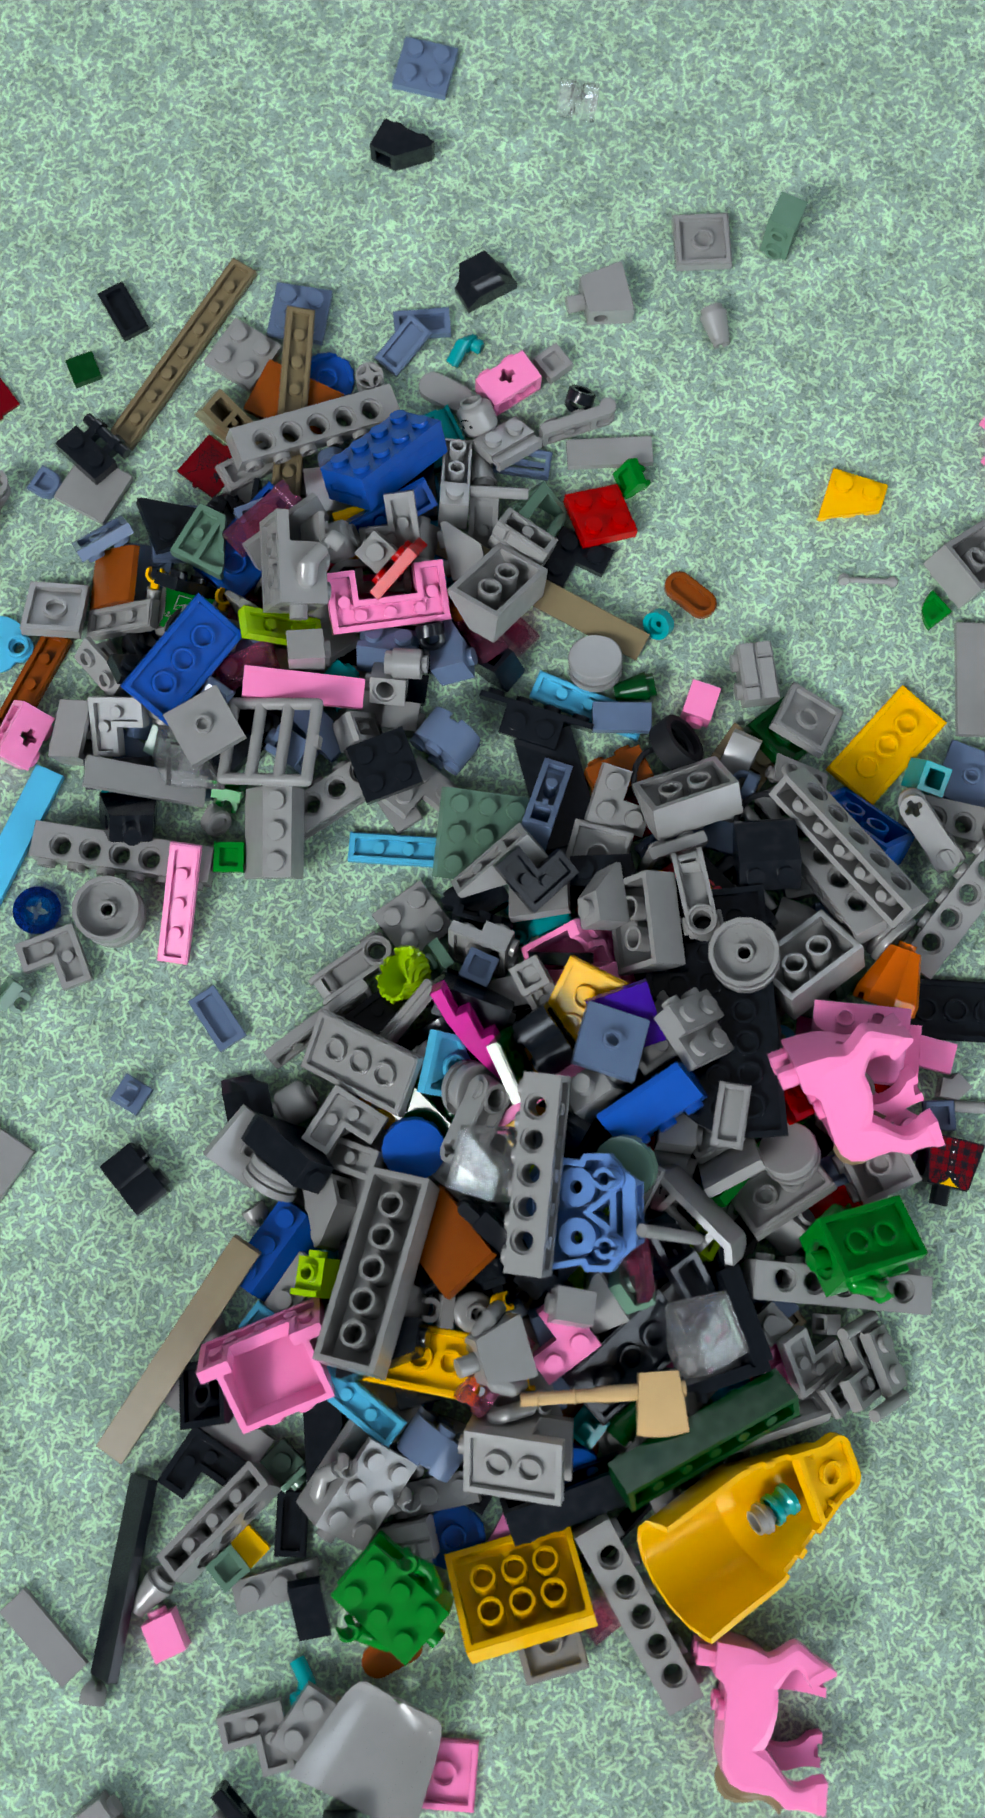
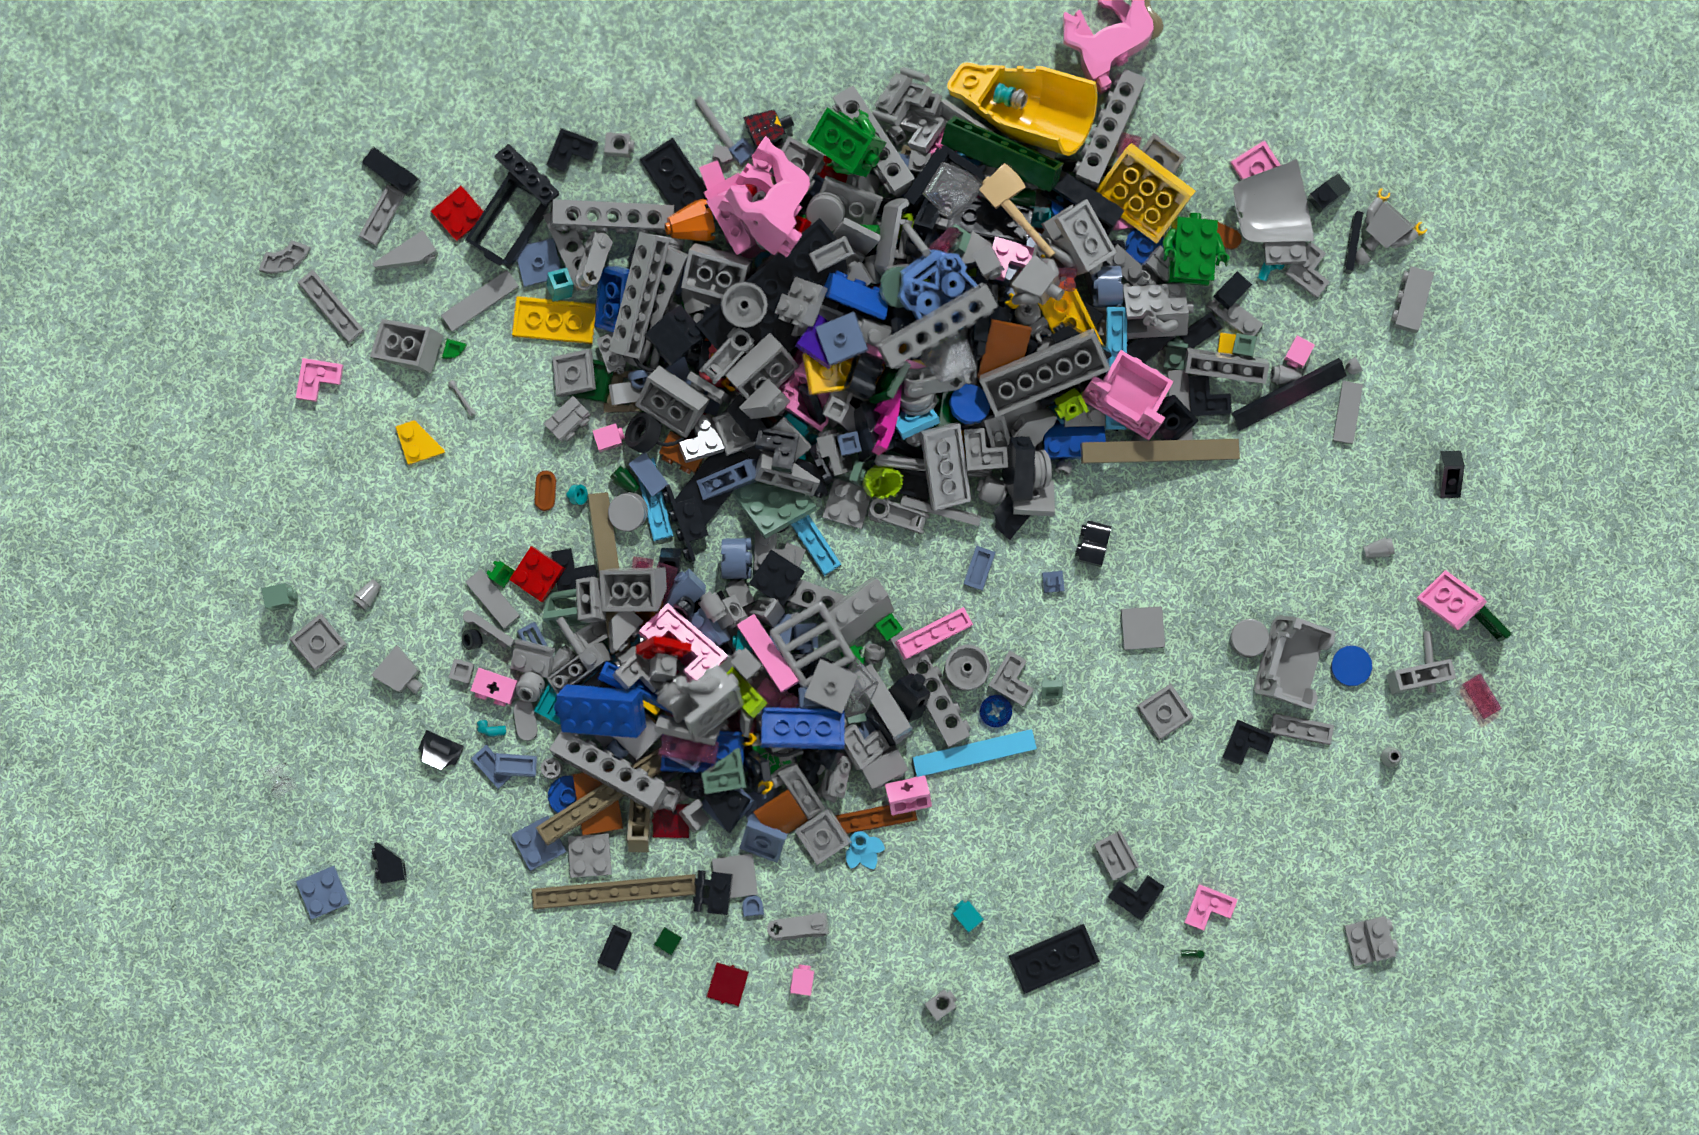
camera: 120 degrees left, 5 degrees up
(194, 488) = (694, 815): none -> light grey panel

